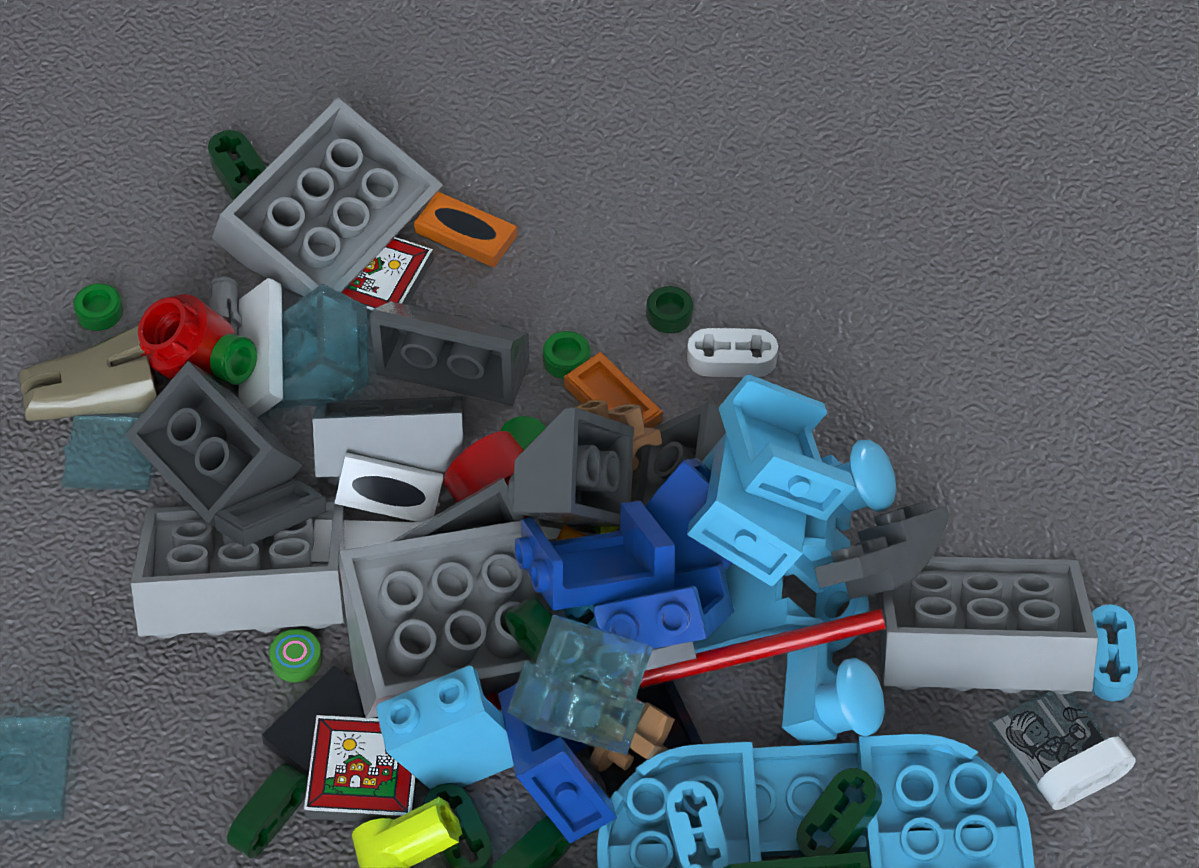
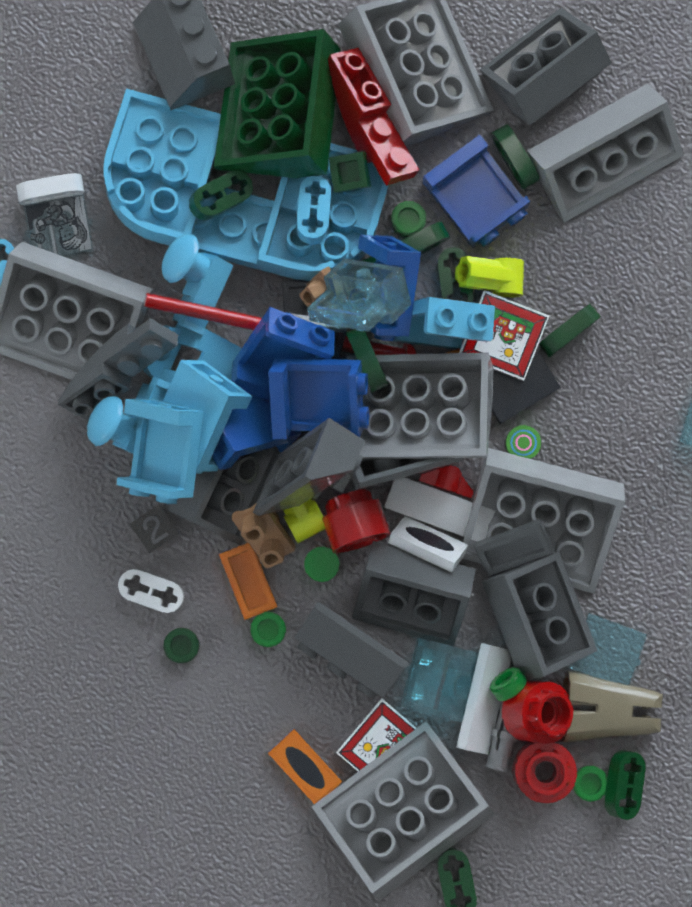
camera: 165 degrees left, 30 degrees up
(60, 307) = (625, 784): none -> dark green beam
(154, 276) = (554, 788): none -> red piece

